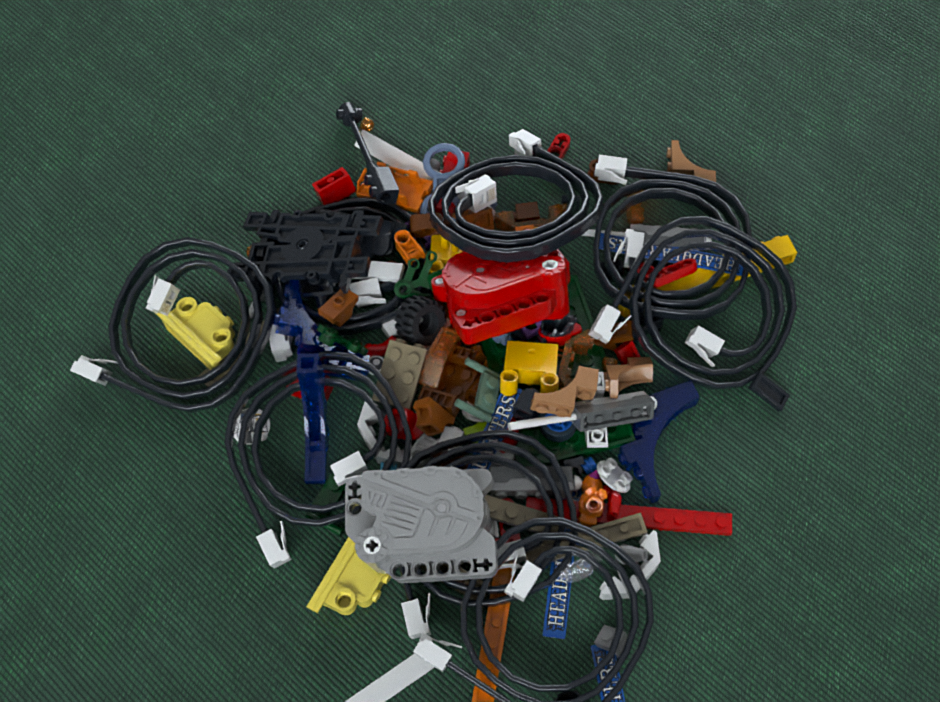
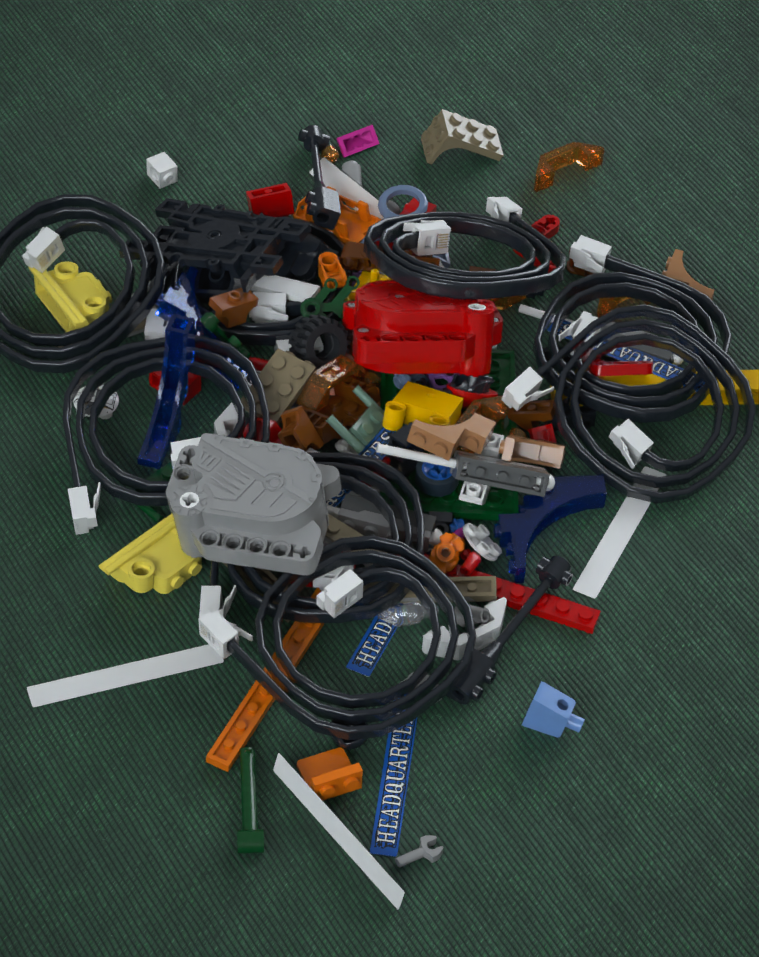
camera: 10 degrees right, 15 degrees down
(235, 179) = (162, 170): none -> white brick
(384, 104) = (357, 141): none -> dark pink slope
(390, 136) = (353, 170): none -> light grey cone
(465, 77) = (455, 131): none -> dark tan bracket
(568, 68) = (584, 154): none -> clear orange slope
(684, 492) = (482, 665): none -> black bar
(717, 432) = (614, 541): none -> white sticker
(730, 636) = (552, 712): none -> medium blue torso
(769, 391) = (689, 511): black tile -> none

